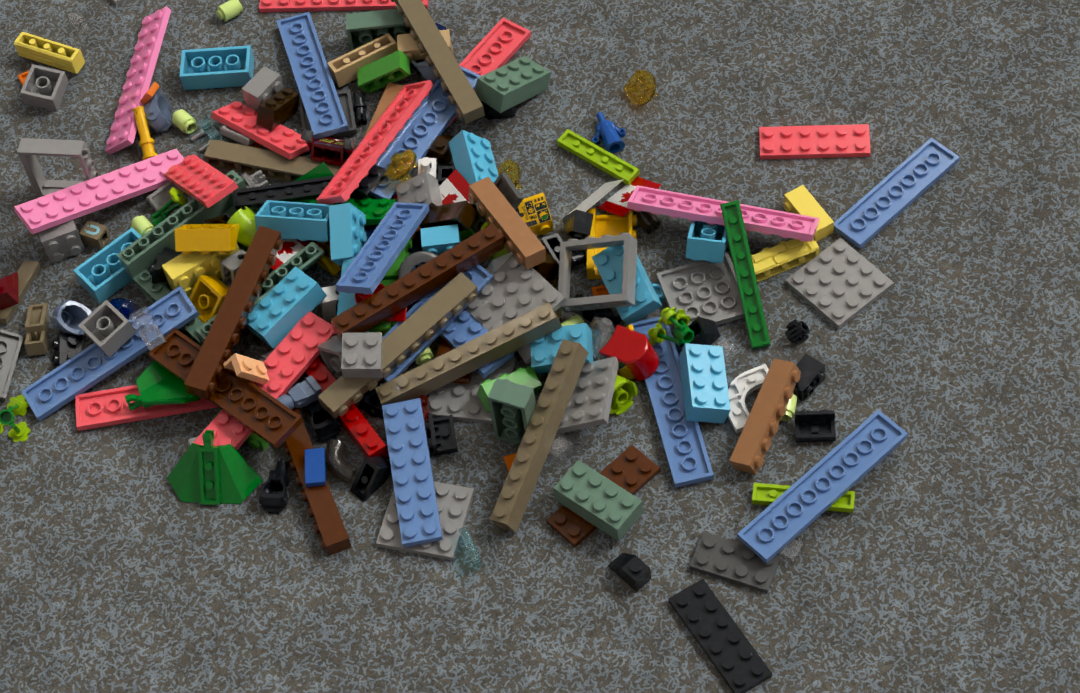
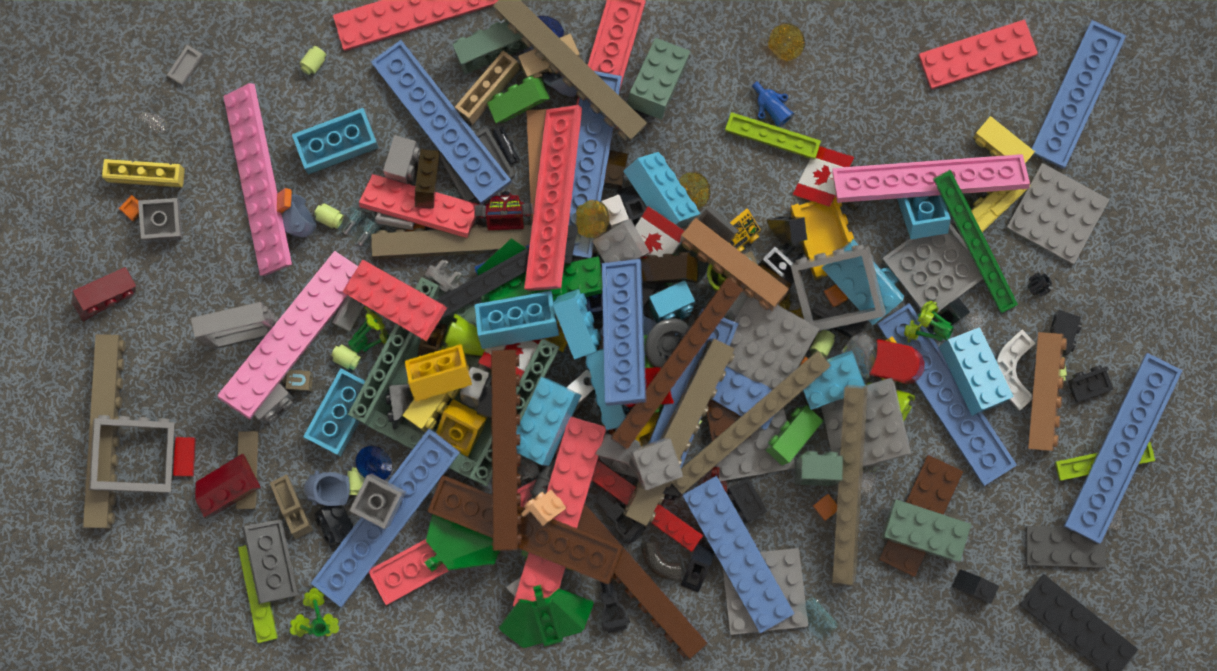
camera: 25 degrees left, 25 degrees up
(146, 141) = (302, 255): yellow pin -> none
(147, 327) = (417, 487): clear slope -> none
(302, 394) = (596, 509): sand blue piece -> none
(315, 467) = (645, 580): blue tile -> none
(597, 195) = (792, 190): white sticker -> none

